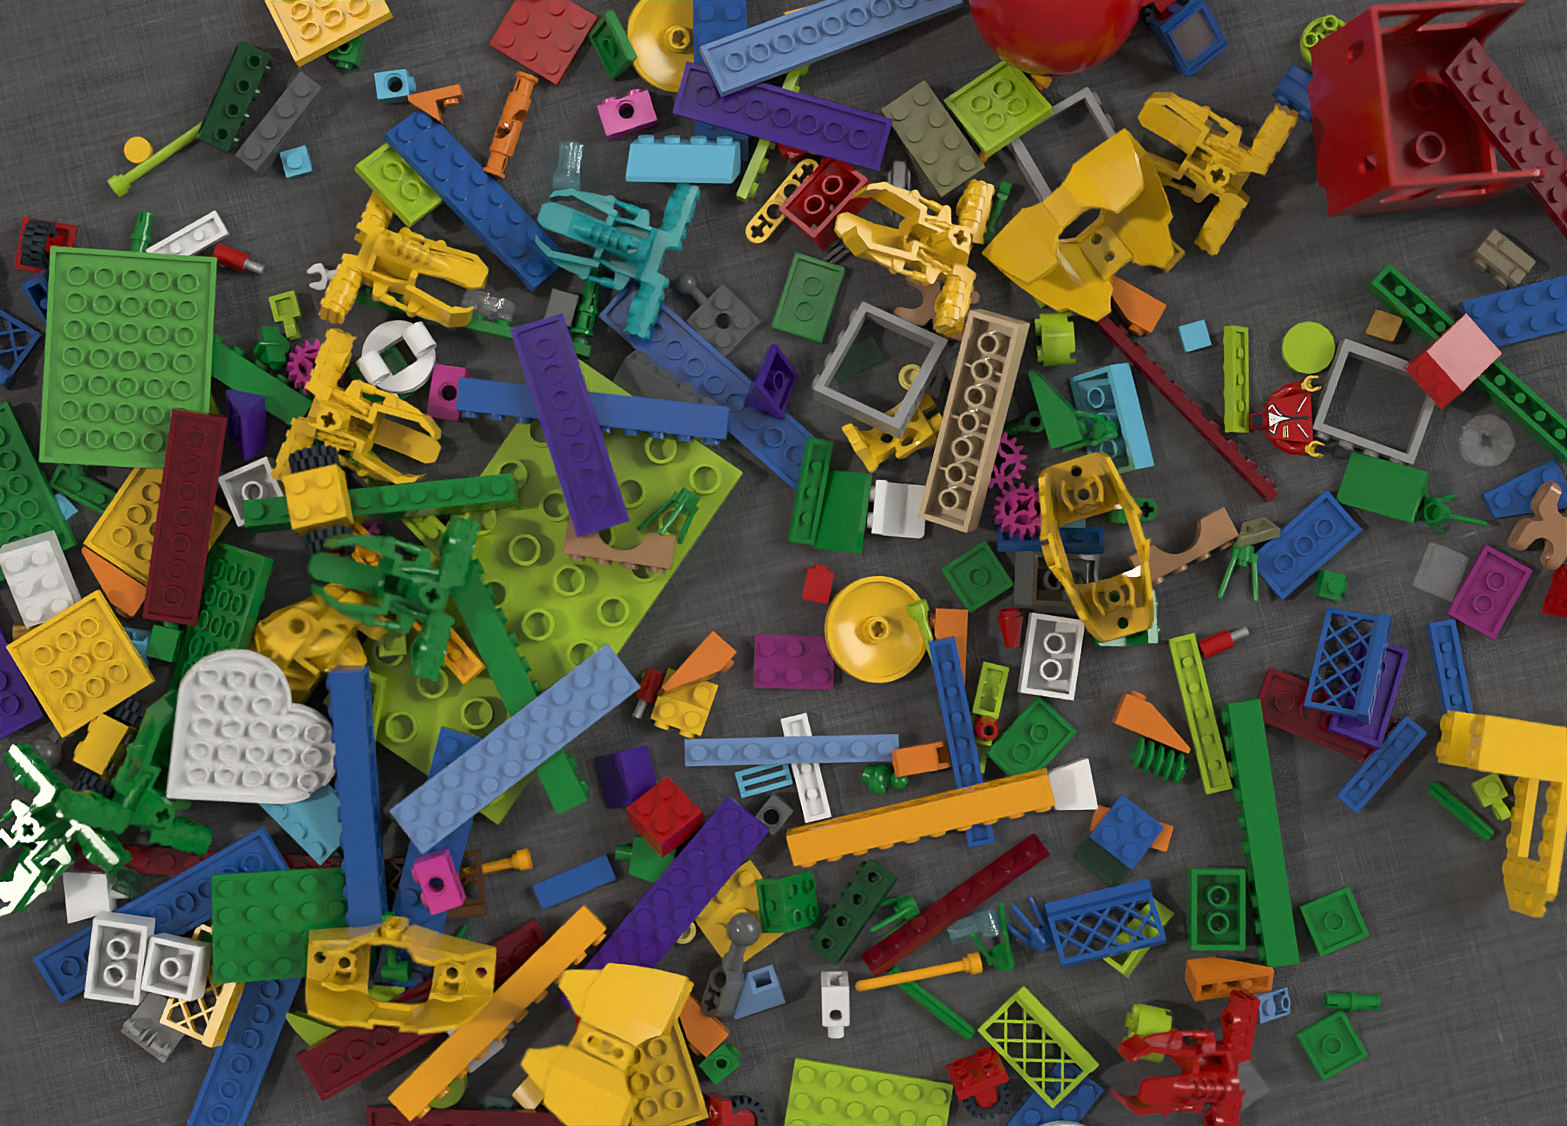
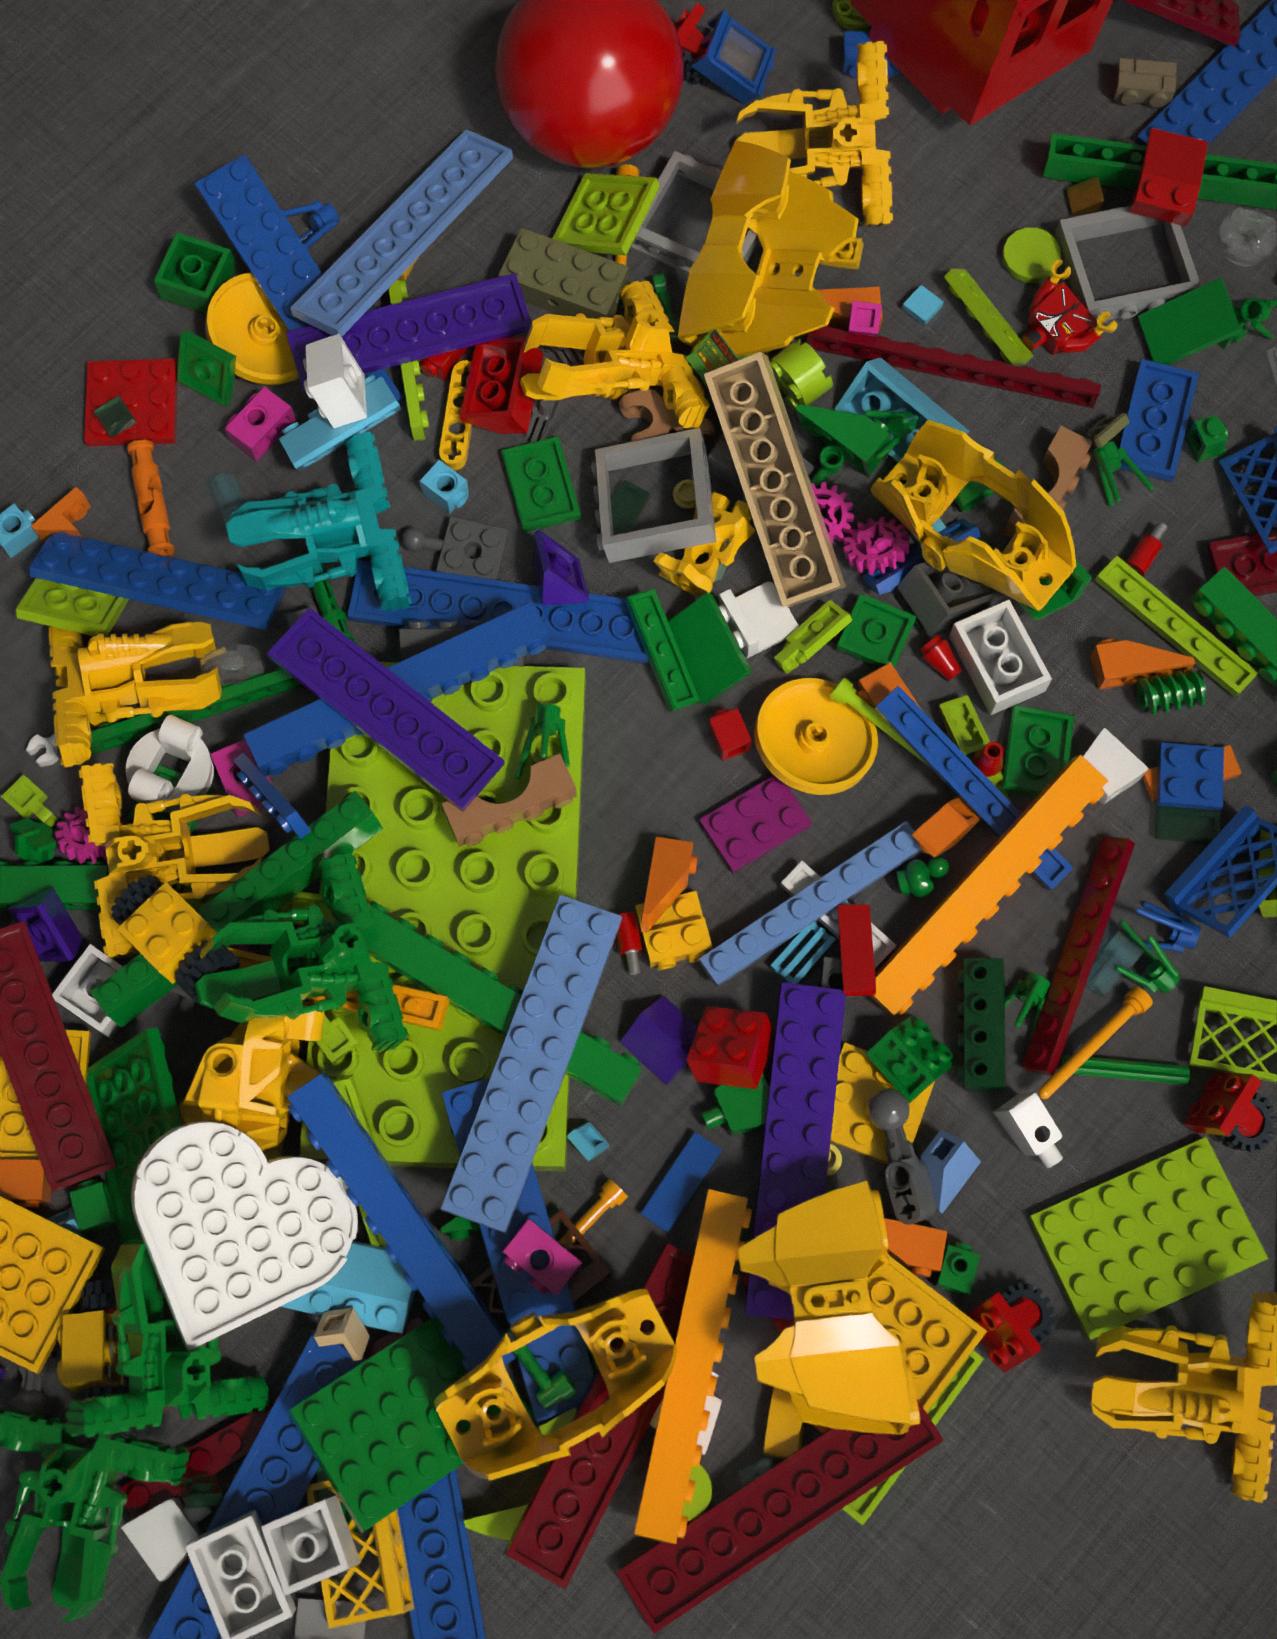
camera: 30 degrees left, 15 degrees down
(281, 840) = (343, 1328): none -> tan panel
(452, 443) = (270, 797): none -> blue plate
(521, 42) = (115, 417): none -> clear green tile
(528, 814) = (588, 1141): none -> medium azure tile
(694, 135) = (335, 381): none -> white brick
(729, 246) = (440, 476): none -> medium azure brick
(797, 805) = (856, 950): none -> red tile
(928, 549) = (812, 636): none -> lime hinge
(998, 292) = (710, 354): none -> tile
(1134, 327) = (864, 318): none -> dark pink plate

